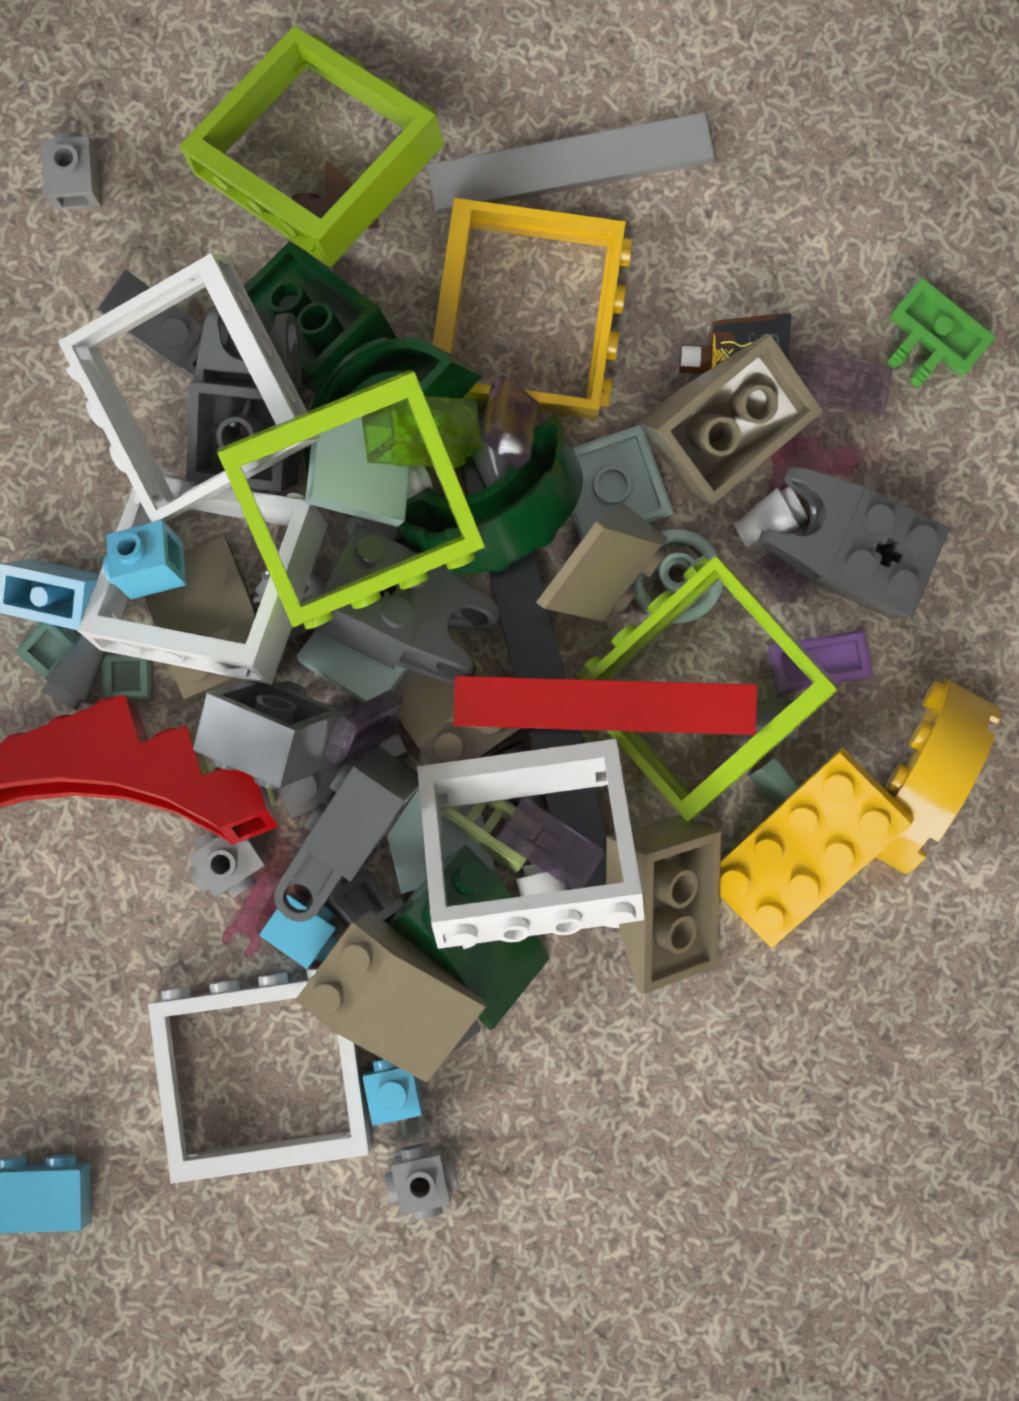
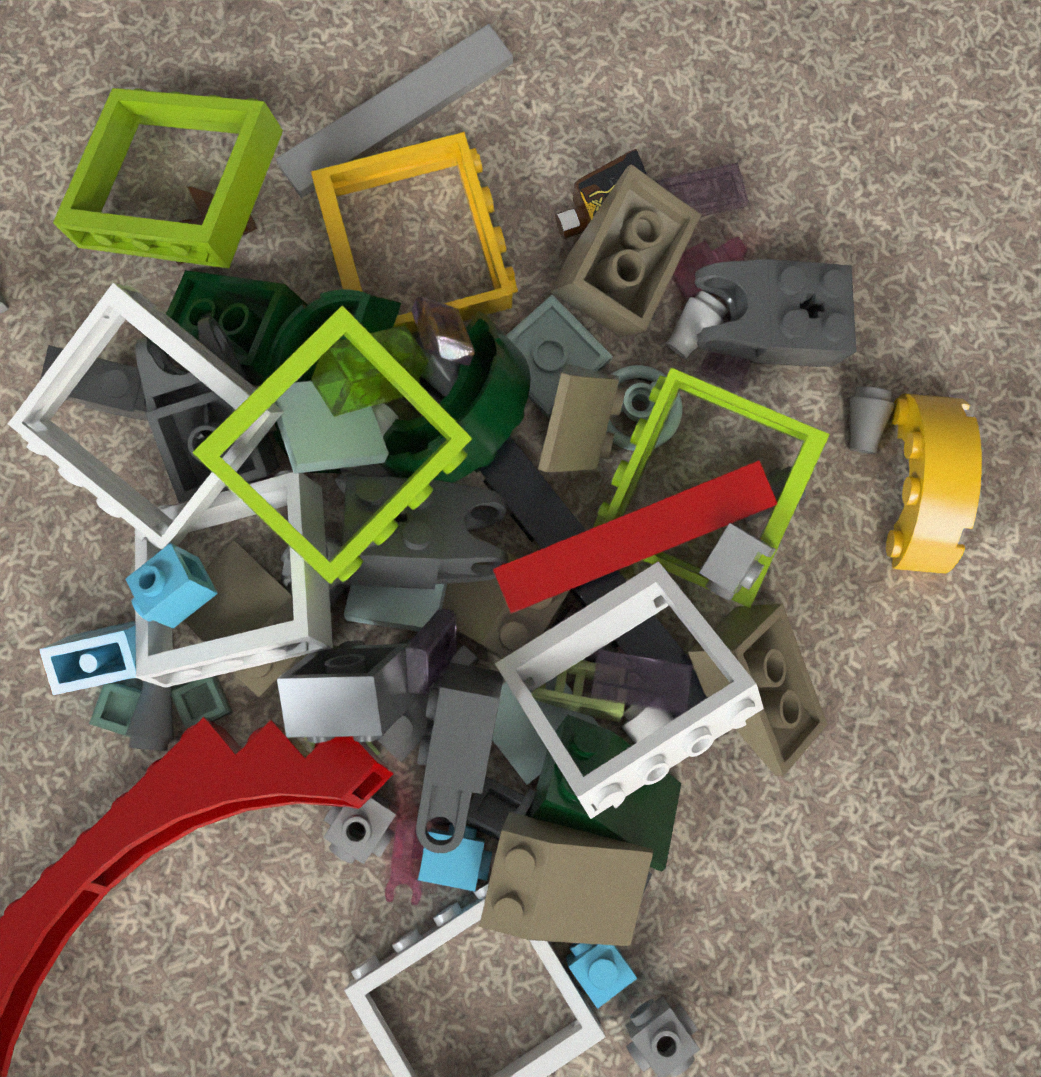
camera: 30 degrees left, 5 degrees down
(690, 770) = (735, 562): none -> light grey brick
(774, 781) = (807, 544): sand green tile -> none
(810, 847) = (864, 583): yellow plate -> none
(840, 656) = (809, 408): medium lavender tile -> none
(900, 687) = (868, 418): none -> light grey cone
(940, 329) = (760, 115): bright green hinge -> none

